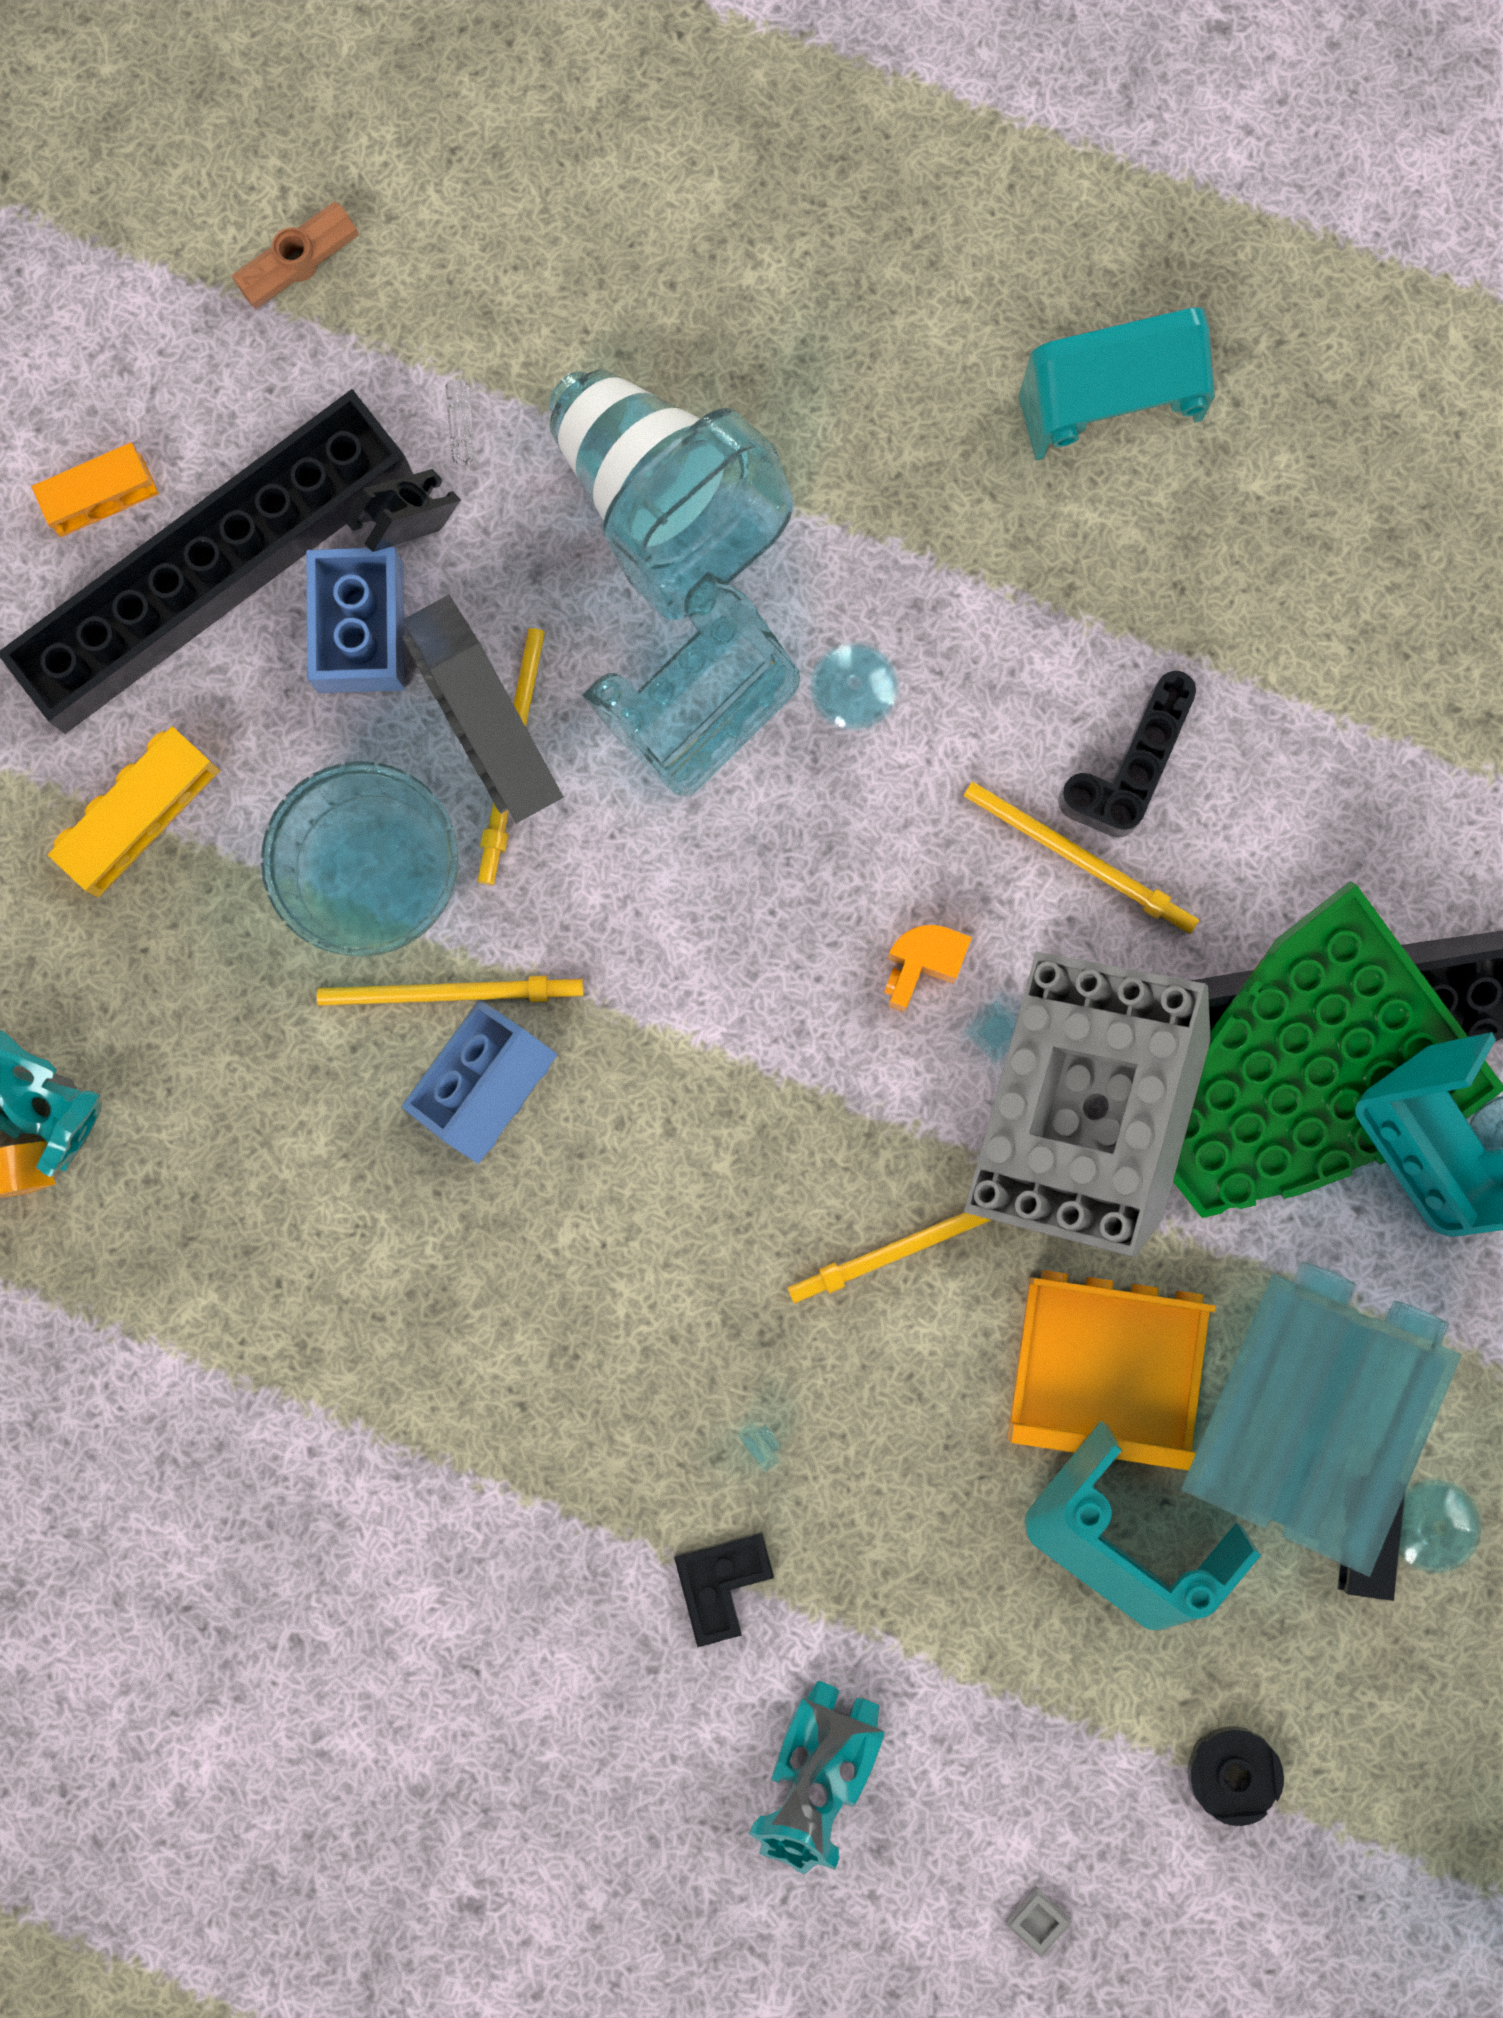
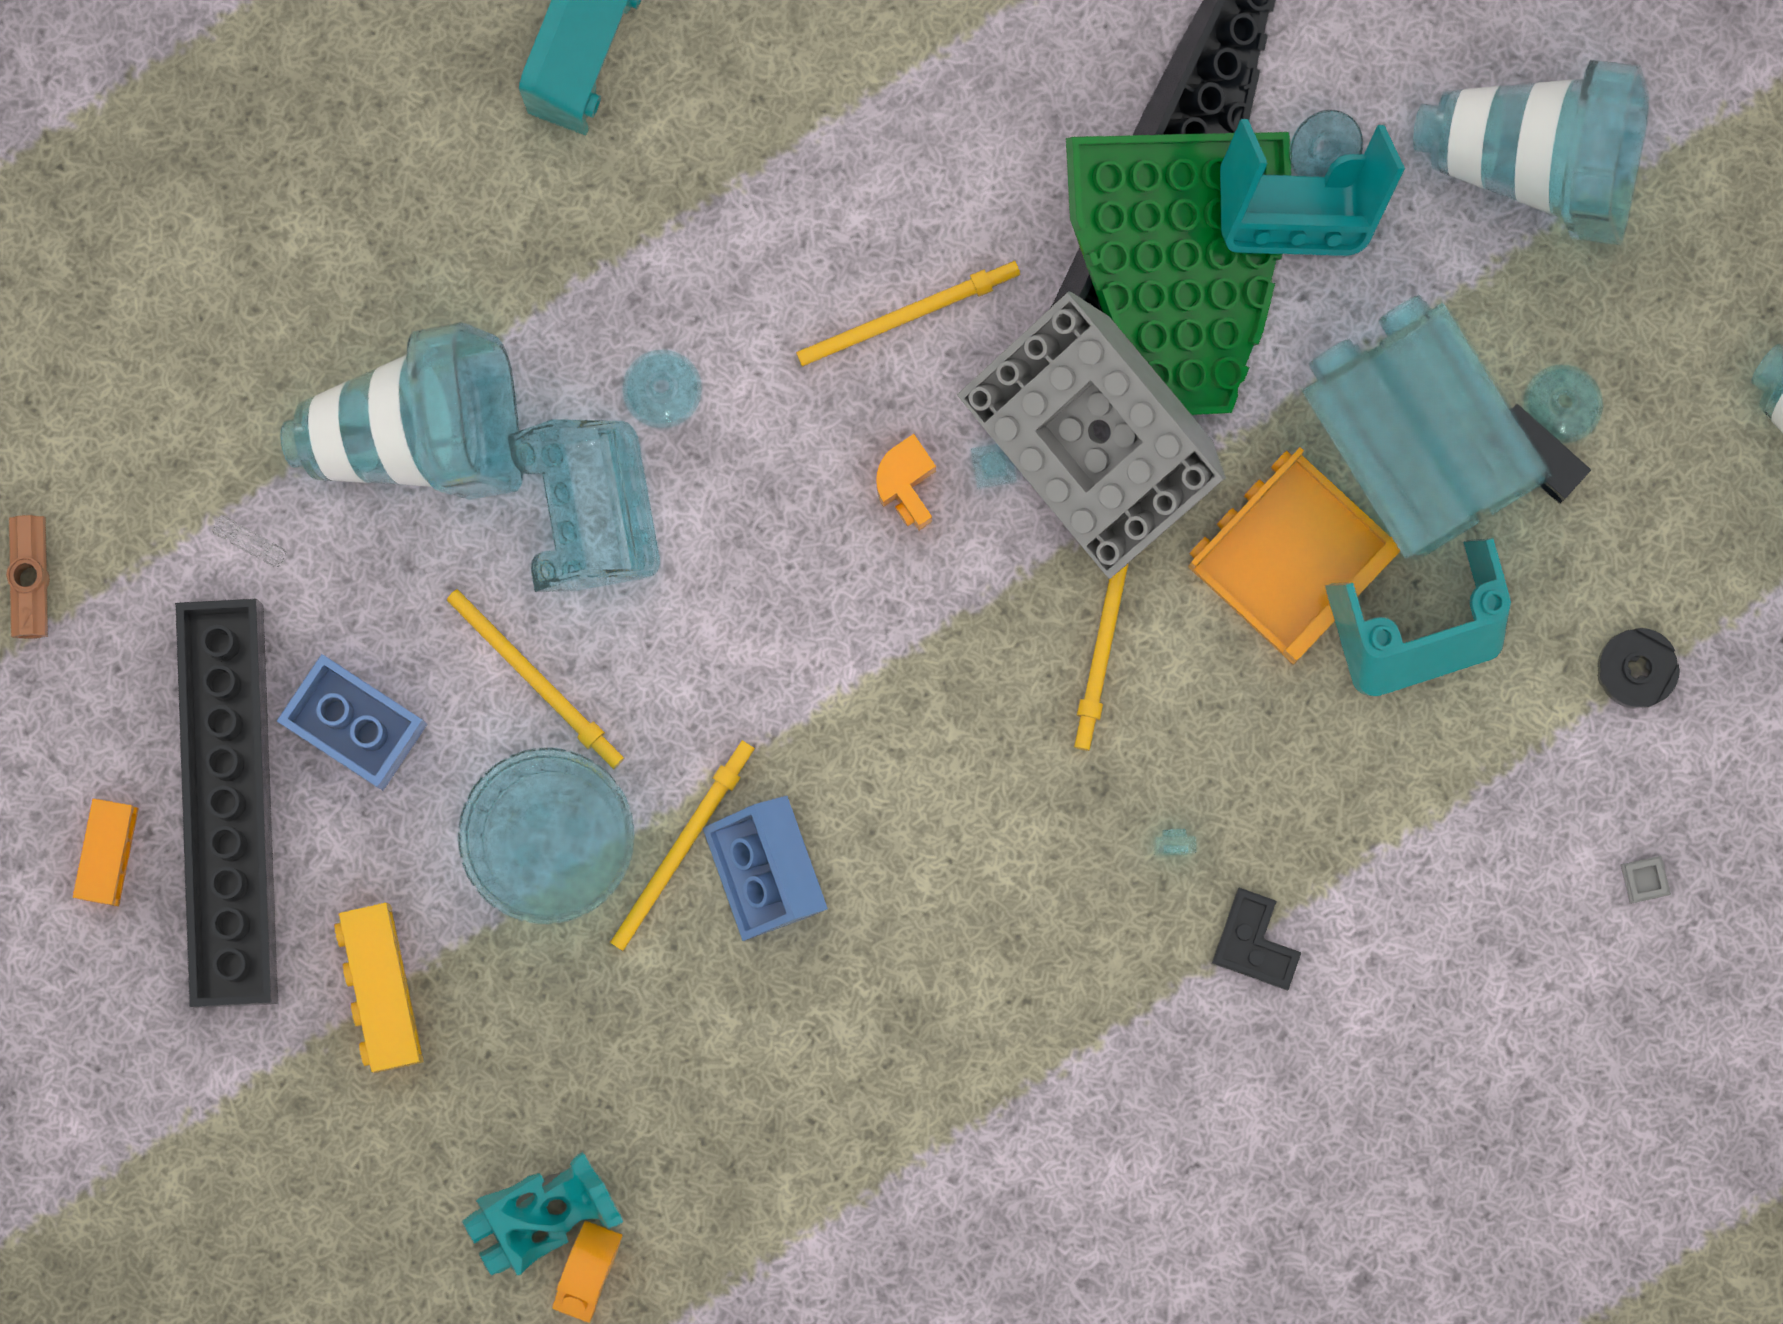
camera: 60 degrees left, 0 degrees up
(401, 509) = (295, 629): black piece -> none
(479, 710) = (491, 668): dark grey piece -> none
(799, 1829) = (1417, 939): teal hips -> none
(1140, 753) = (860, 217): black beam -> none

